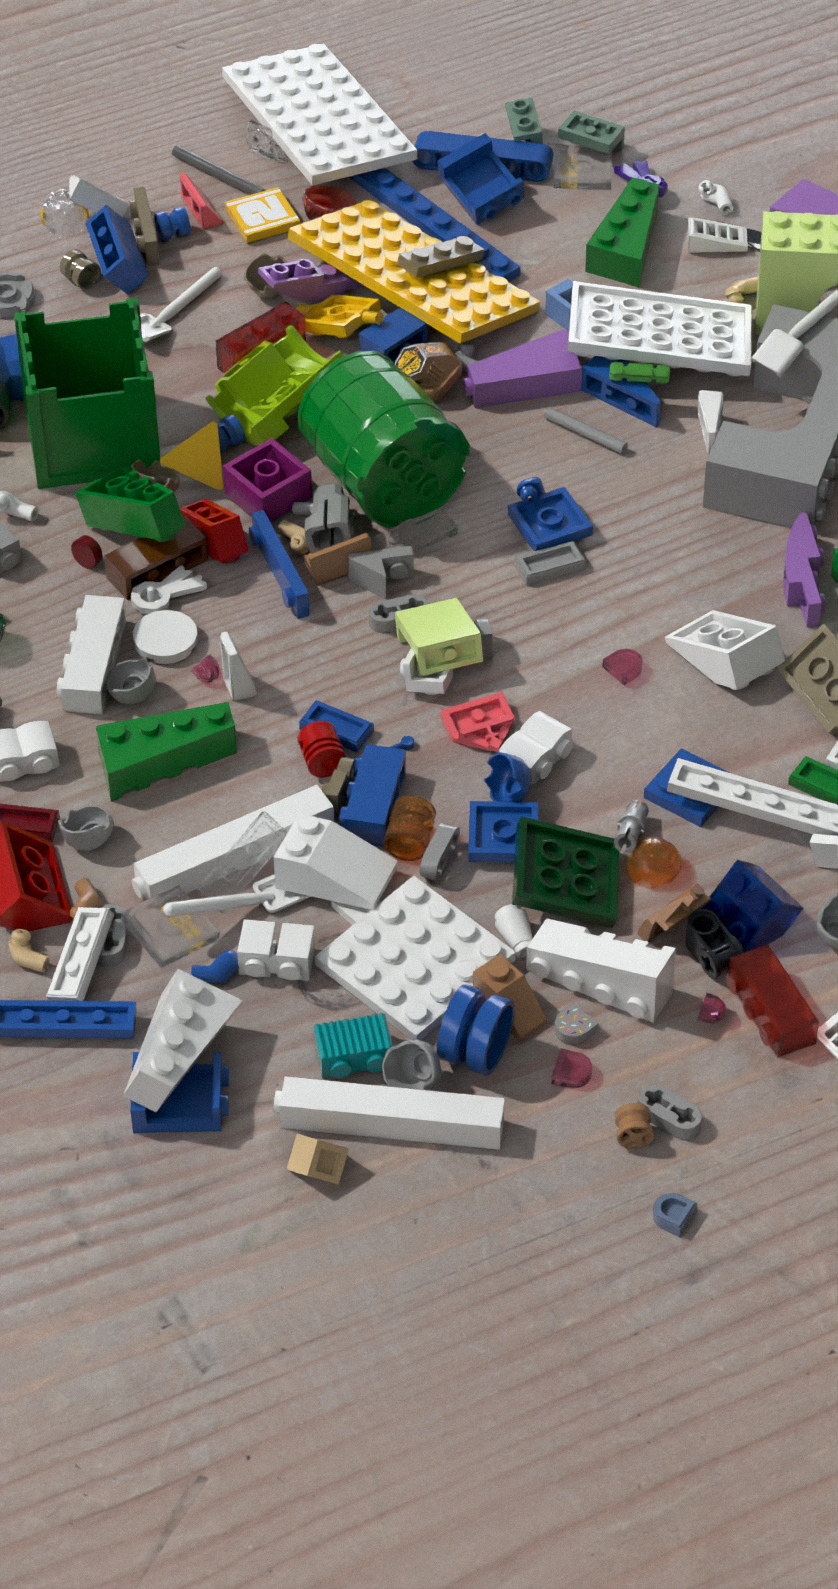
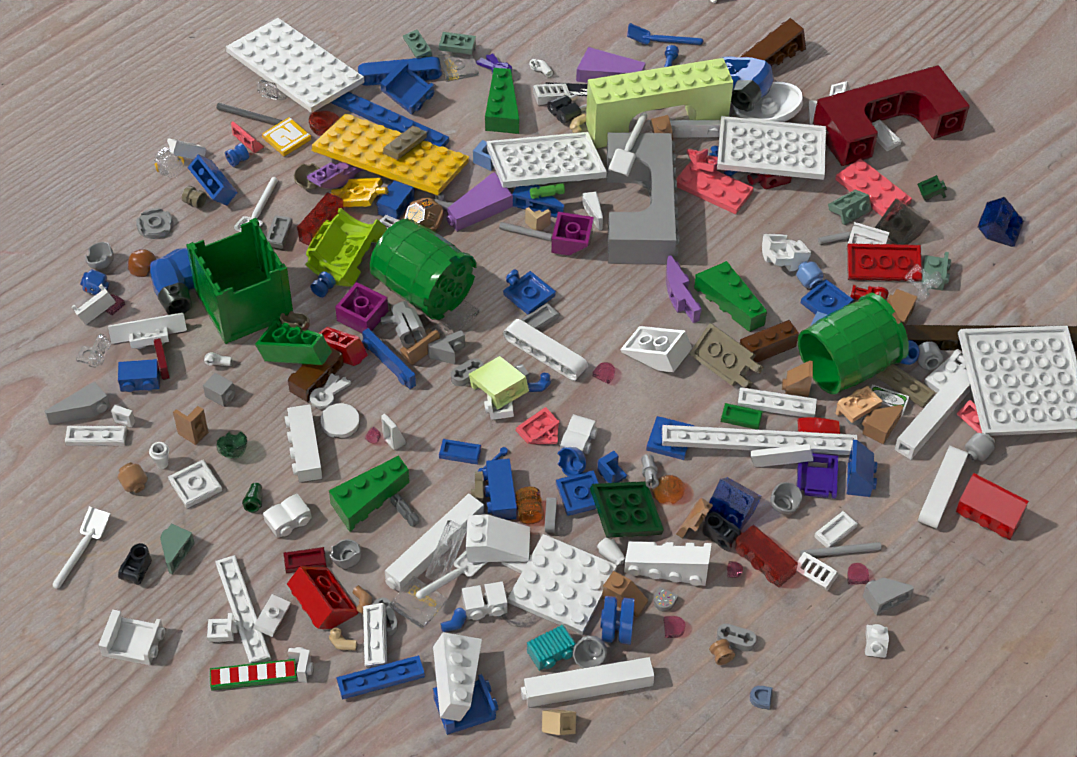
camera: 20 degrees left, 5 degrees up
(87, 551) = (273, 378): dark red tile -> none
(131, 681) = (334, 454): light grey hair -> none
(144, 226) = (221, 159): dark tan plate -> none
(189, 346) = (279, 231): none -> light grey plate
(198, 457) = (315, 303): yellow piece -> none
(210, 789) = (405, 510): none -> dark grey axle
(296, 534) = (391, 337): tan arm -> none
(320, 748) = (460, 469): red piece -> none
(508, 660) = (541, 385): none -> blue arm
(539, 608) = (545, 349): none -> white beam
(568, 805) = (609, 468): none -> blue panel
(611, 418) = (537, 220): none -> tan panel
(655, 444) = (571, 233): none -> magenta slope
(729, 262) = (565, 109): none -> black piece

